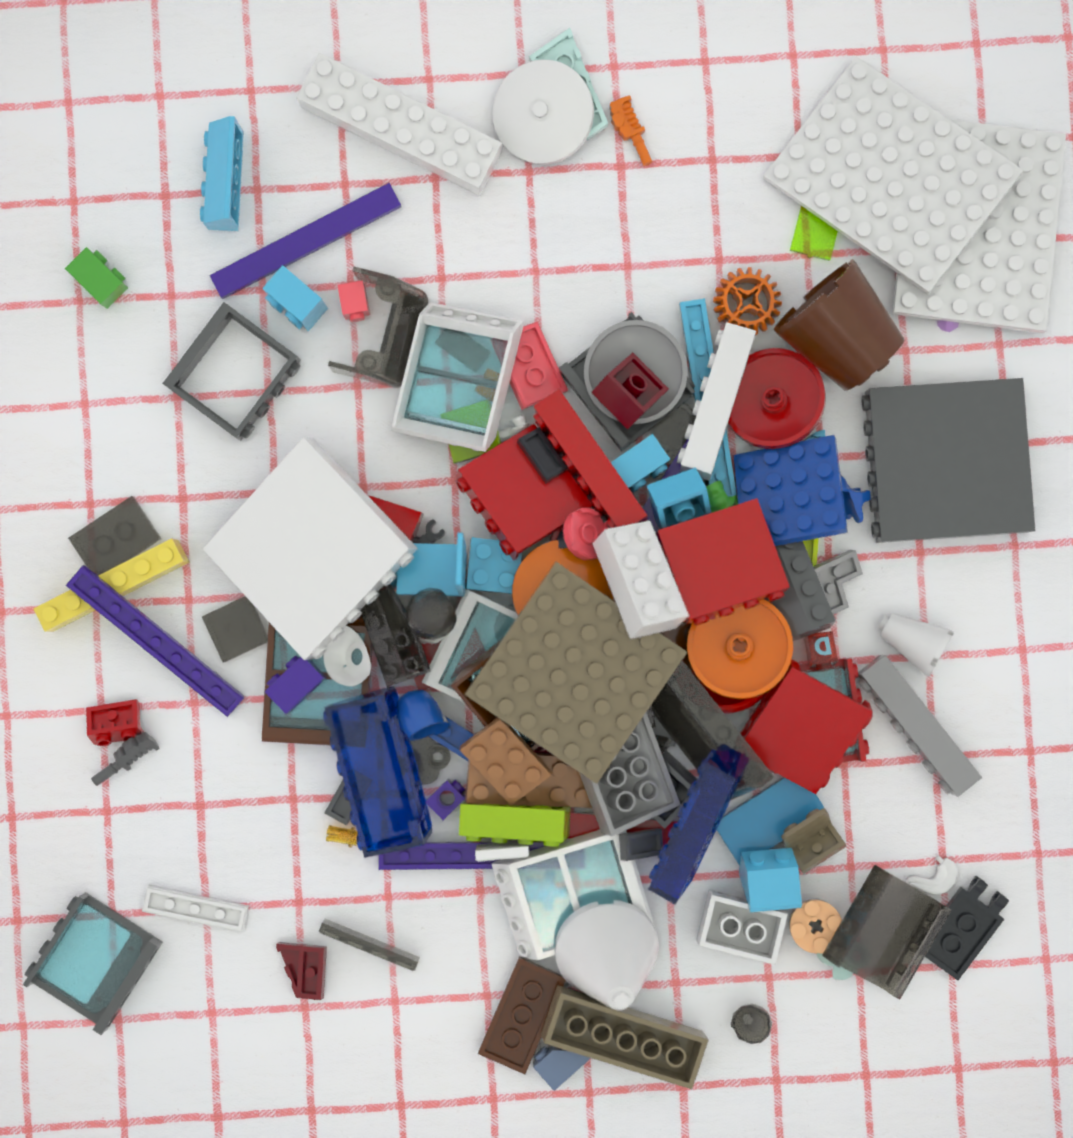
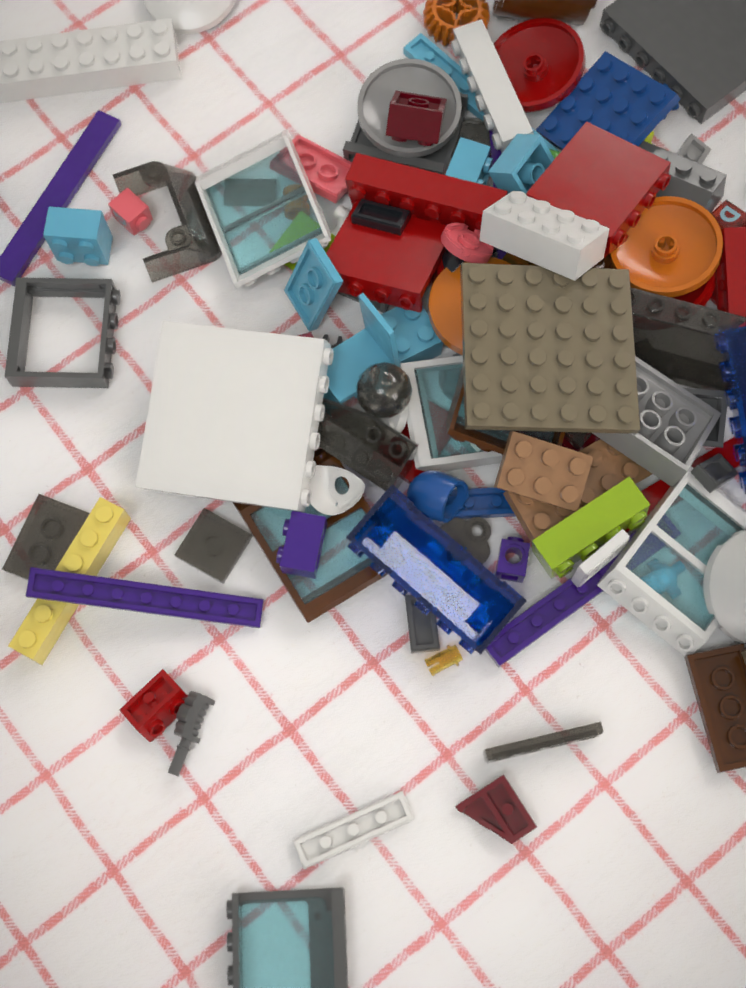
camera: 35 degrees left, 15 degrees down
(447, 477) = (313, 284): none -> medium azure tile

